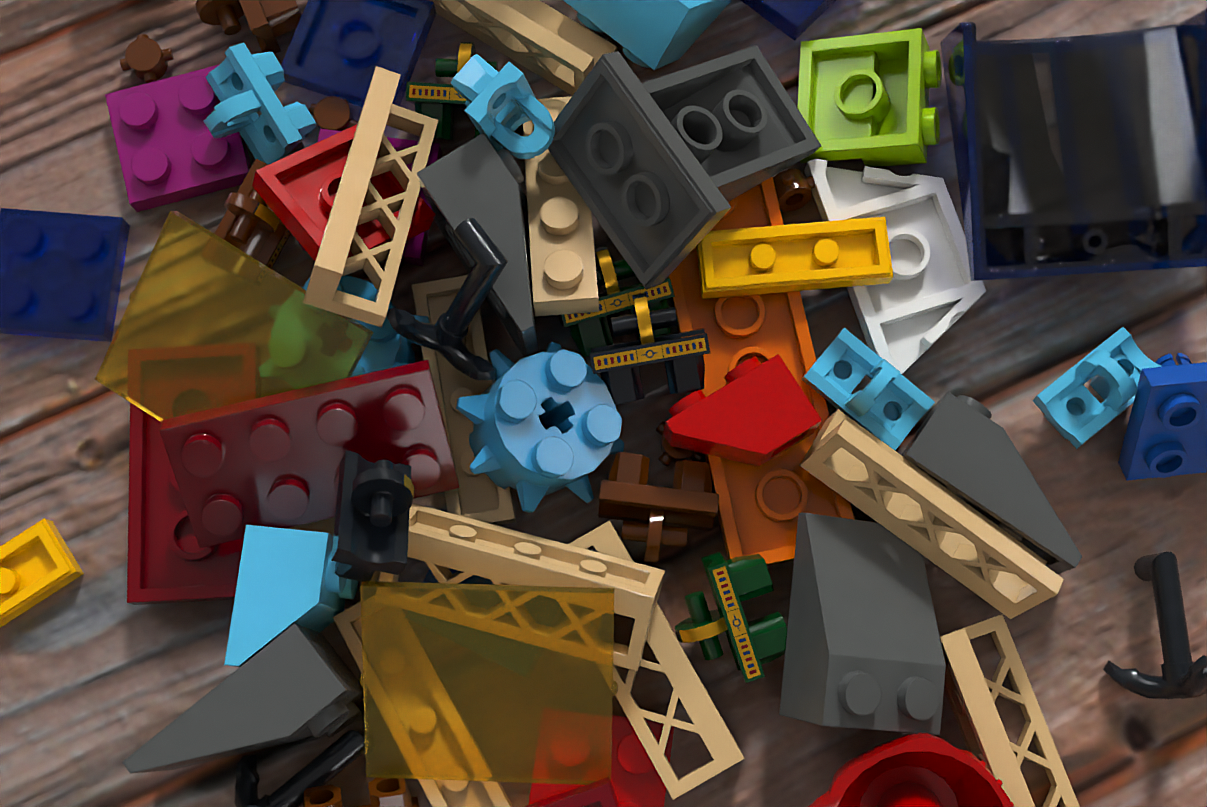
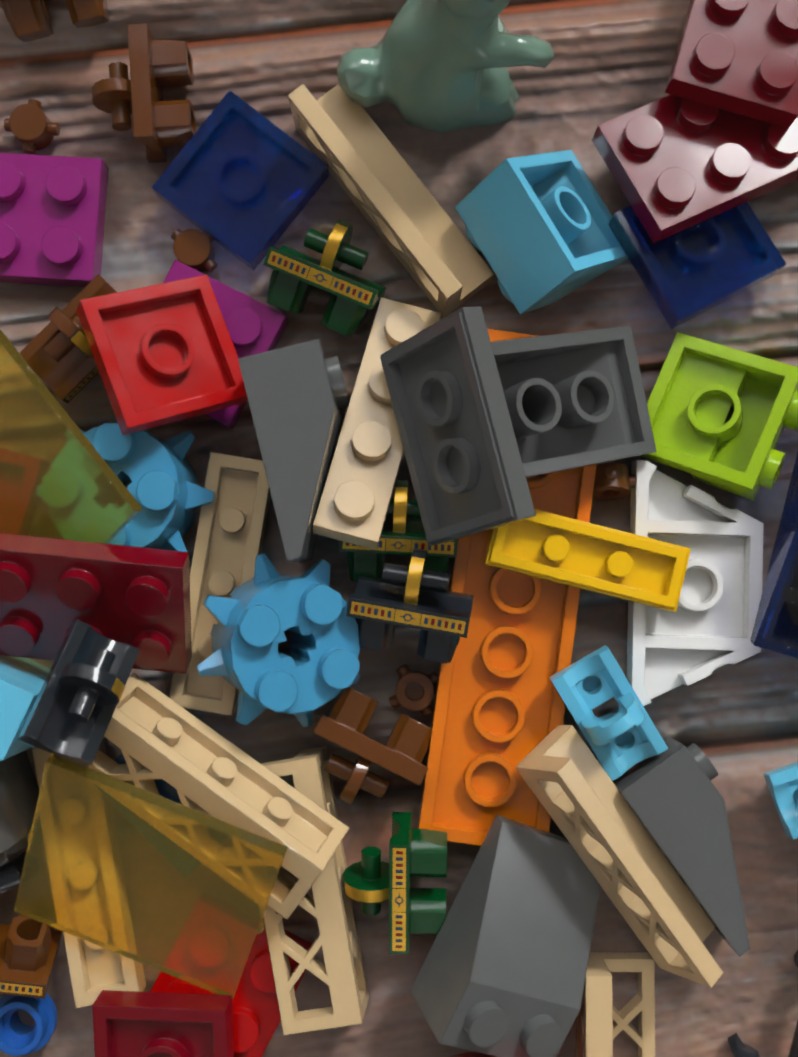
camera: 20 degrees right, 10 degrees up
(244, 87) = (110, 196): medium azure hips -> none
(355, 189) = (158, 367): tan fence -> none
(452, 327) = (228, 519): black piece -> none
(502, 103) = (346, 310): medium azure hips -> none
(747, 419) = (483, 707): red slope -> none

